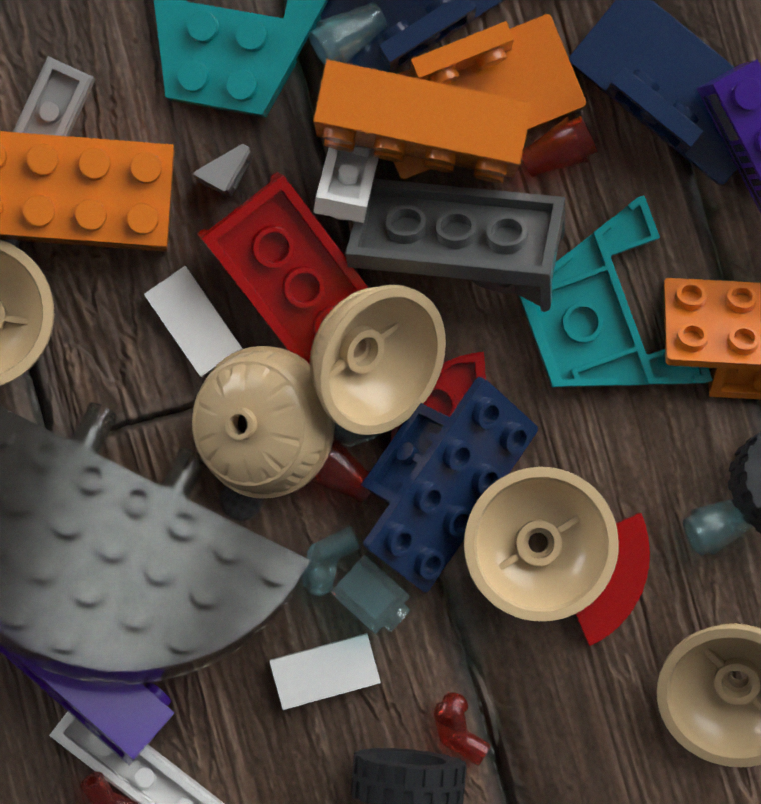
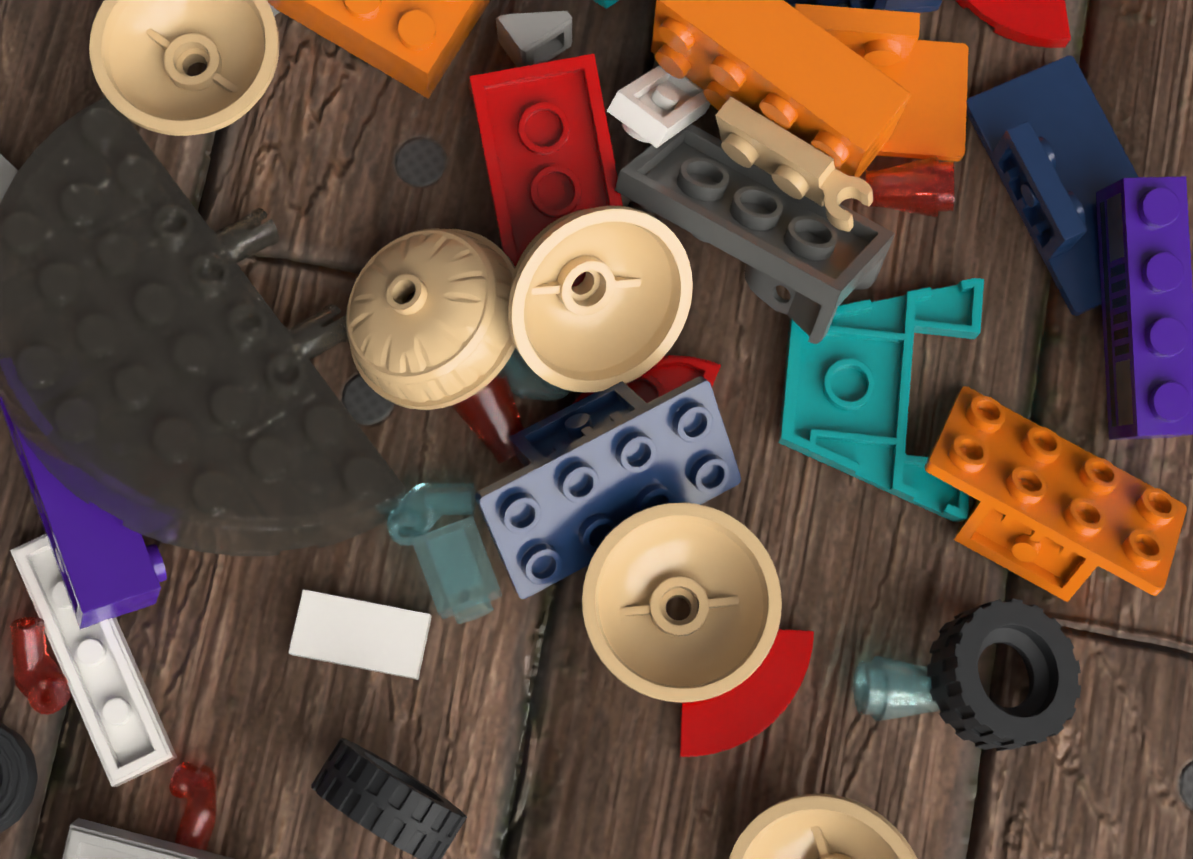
camera: 20 degrees right, 10 degrees down
(192, 321) = (415, 175): white tile -> none
(453, 729) = (472, 778): clear red arm -> none
(471, 186) = (791, 161): none -> tan plate

